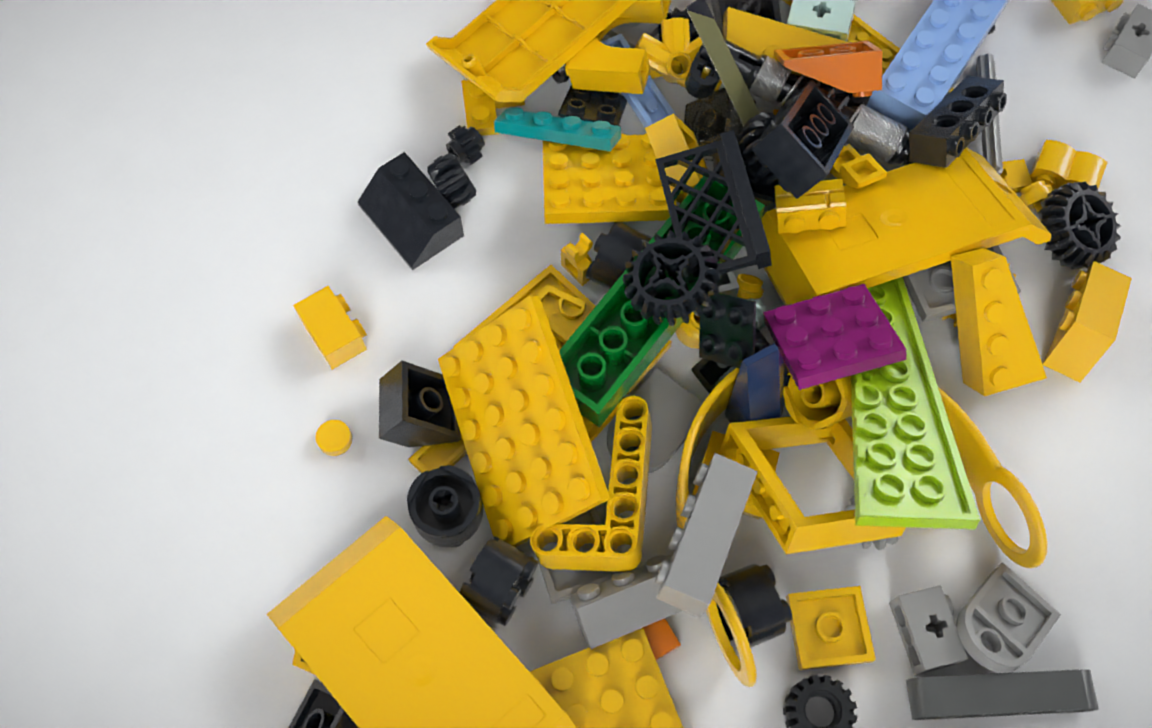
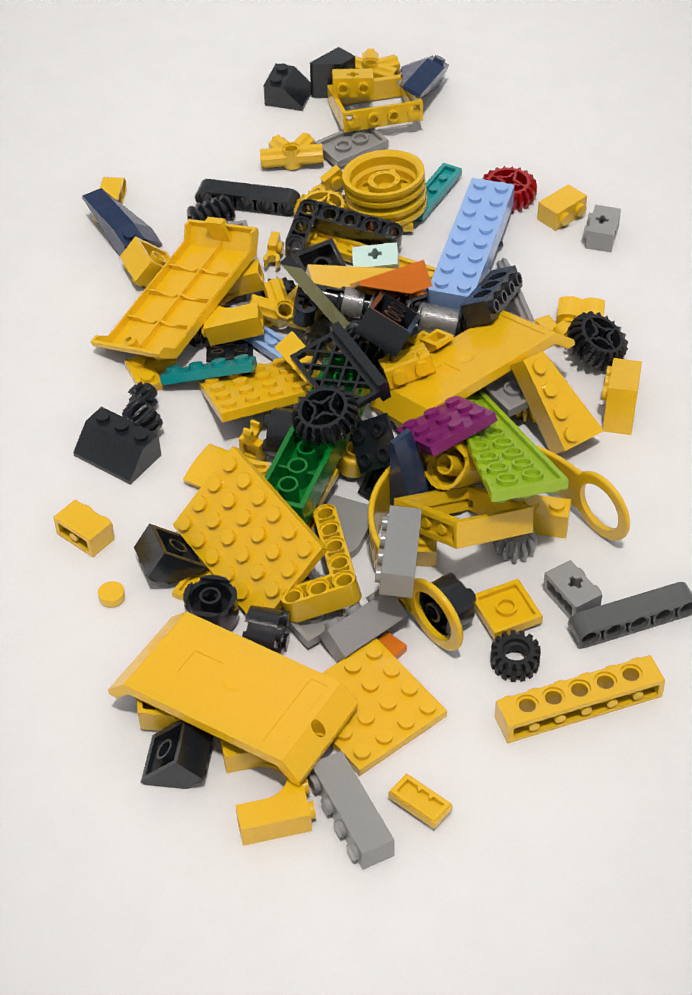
camera: 15 degrees left, 20 degrees down
(512, 273) = (204, 465): none -> yellow slope
(1006, 616) = (621, 571): light grey tile -> none

